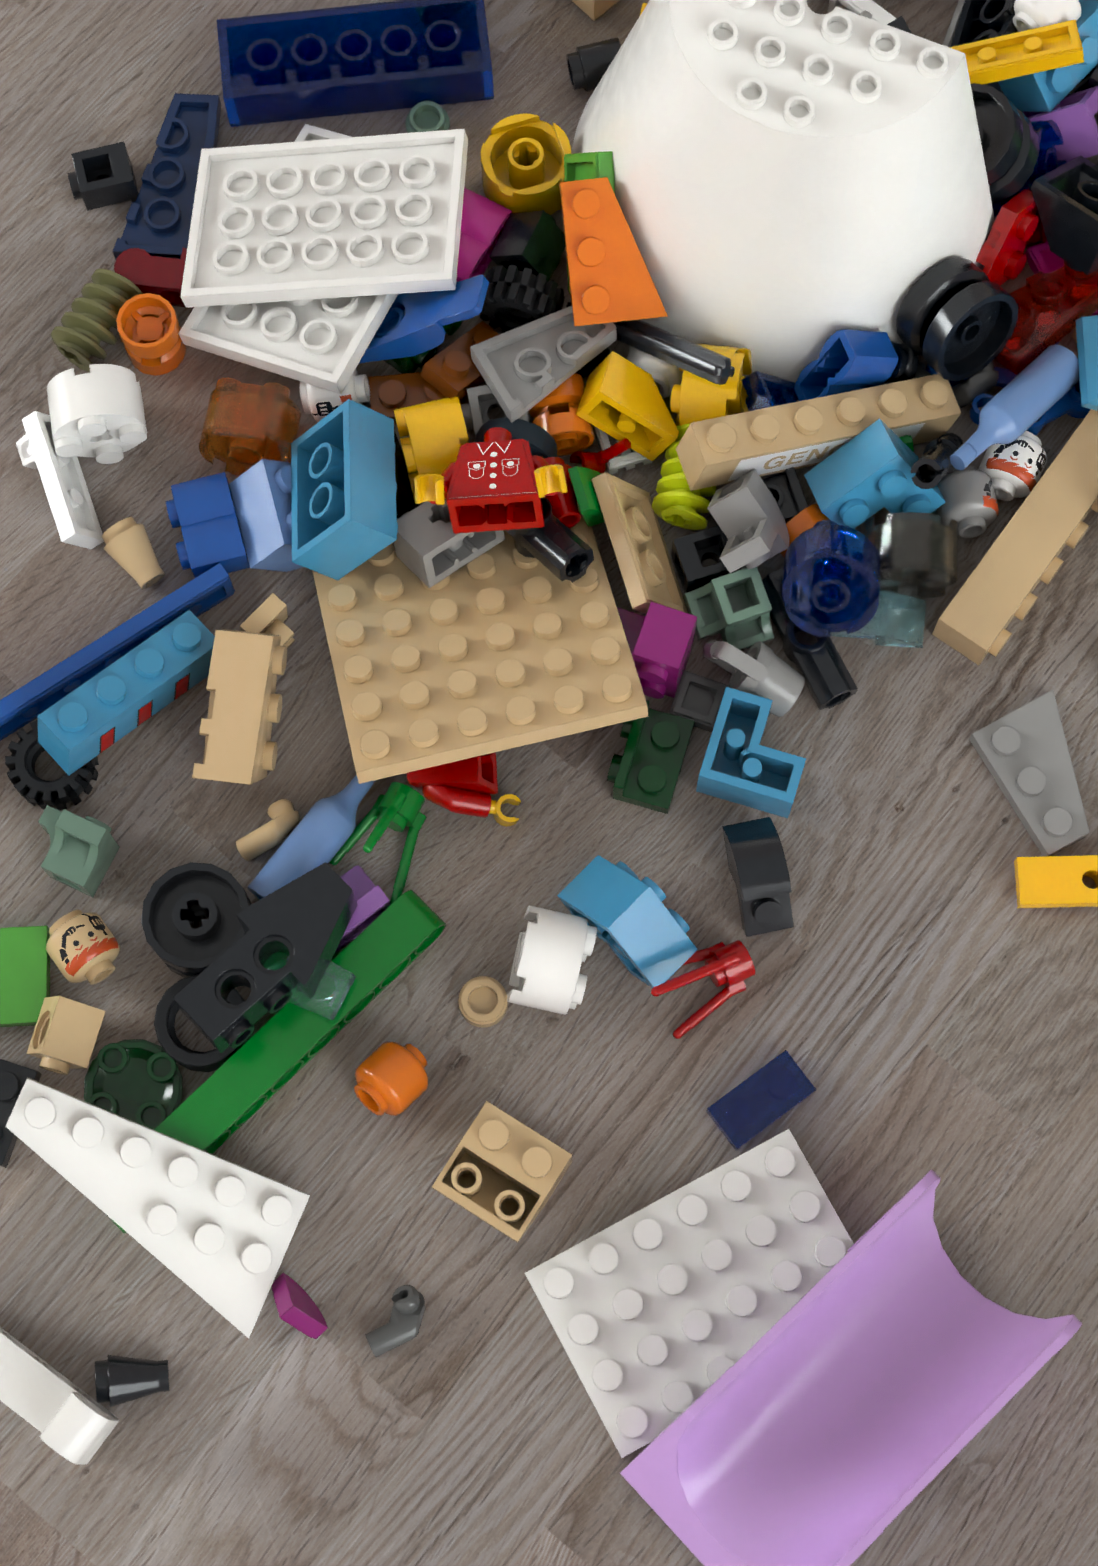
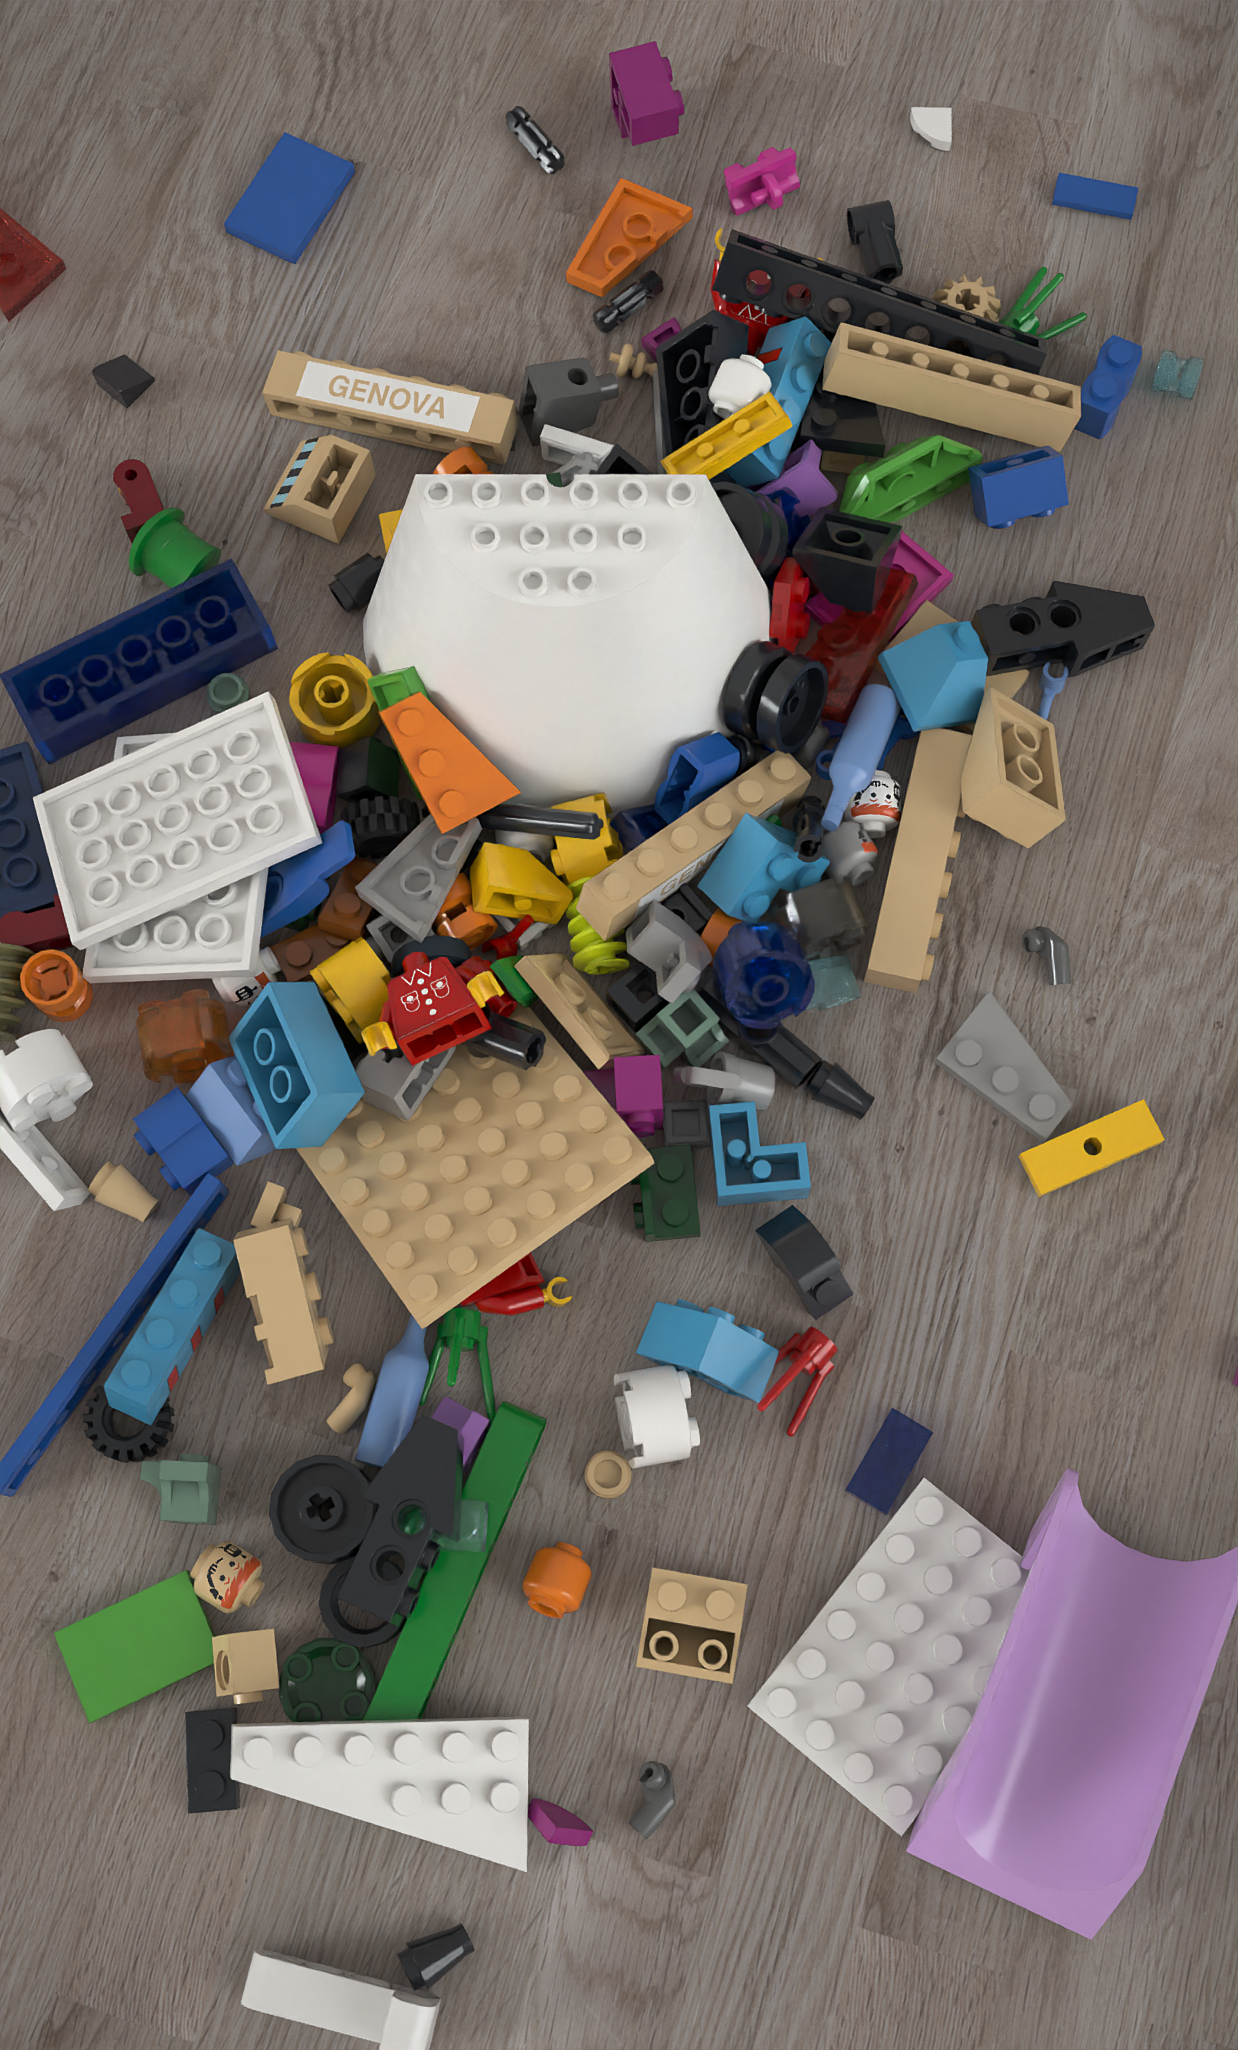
camera: 20 degrees left, 0 degrees up
(861, 726) = (838, 1090): none -> black cone

